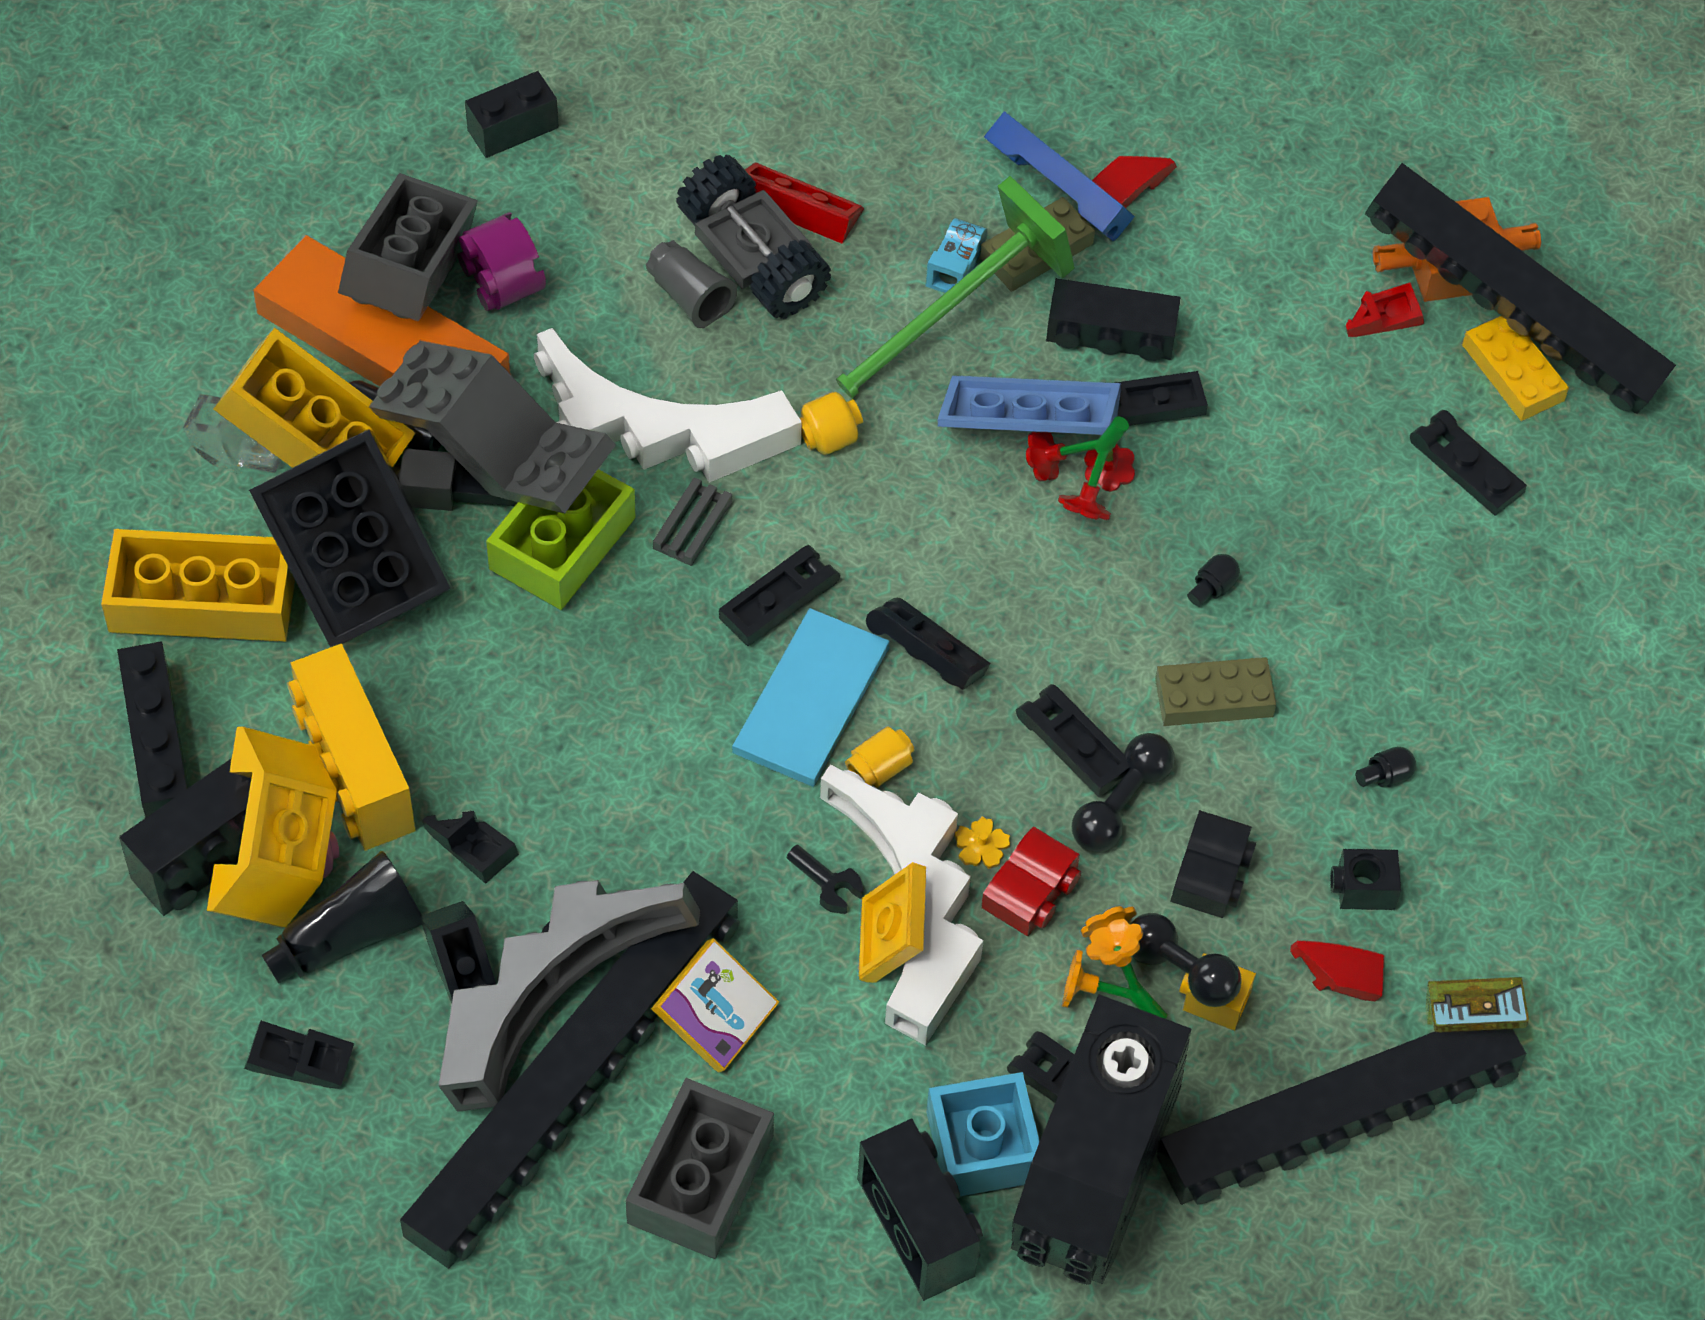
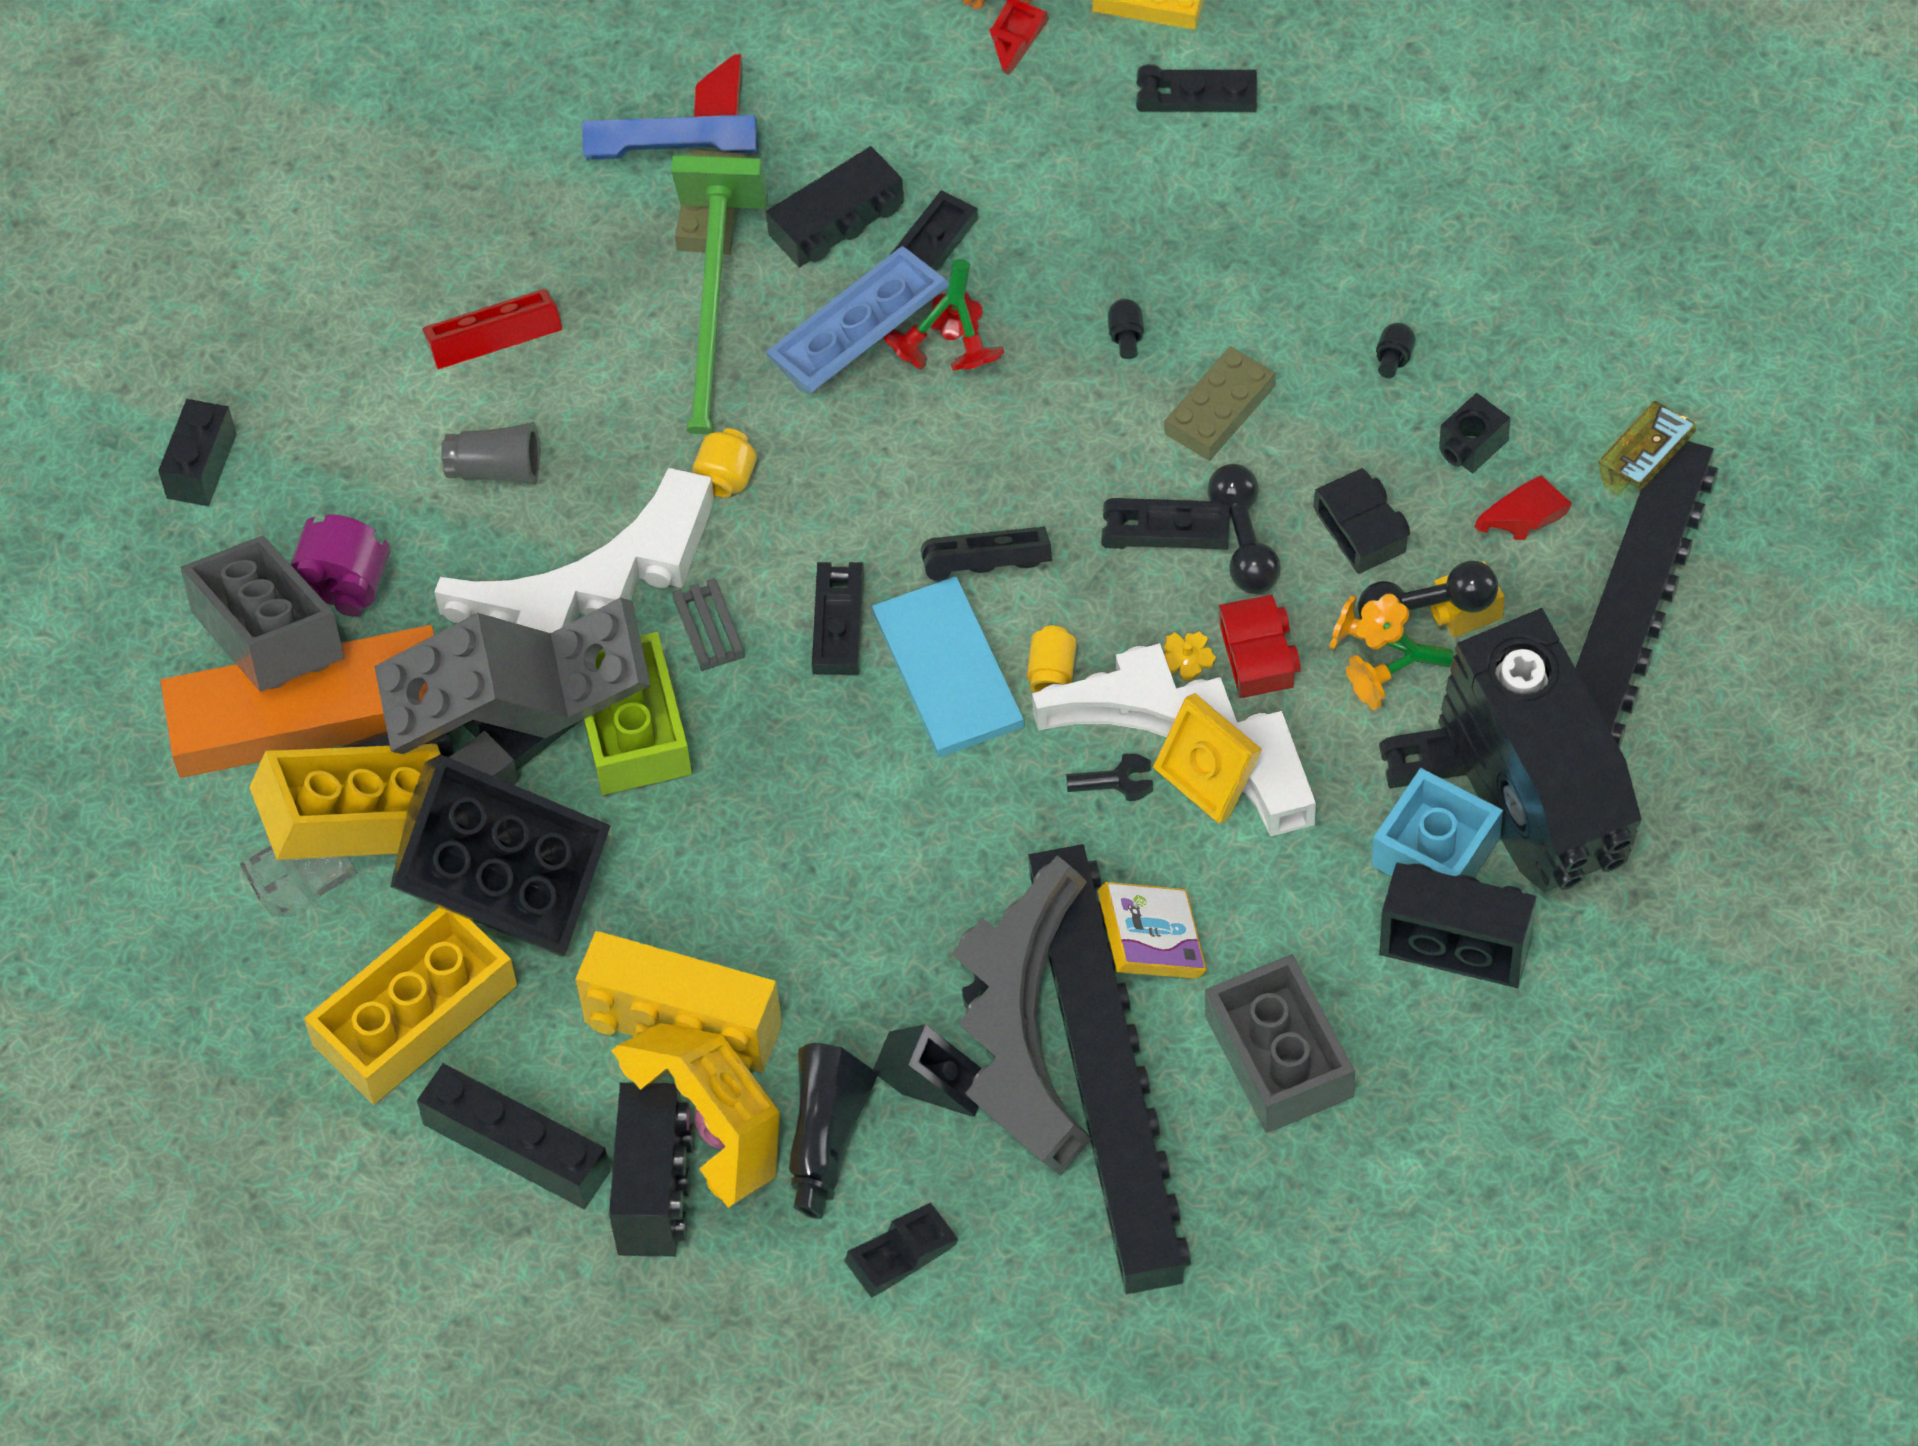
camera: 40 degrees left, 0 degrees up
(473, 843) = (837, 991): black slope -> none
(752, 237) = (503, 379): plate -> none
(956, 254) = (665, 262): medium azure leg -> none

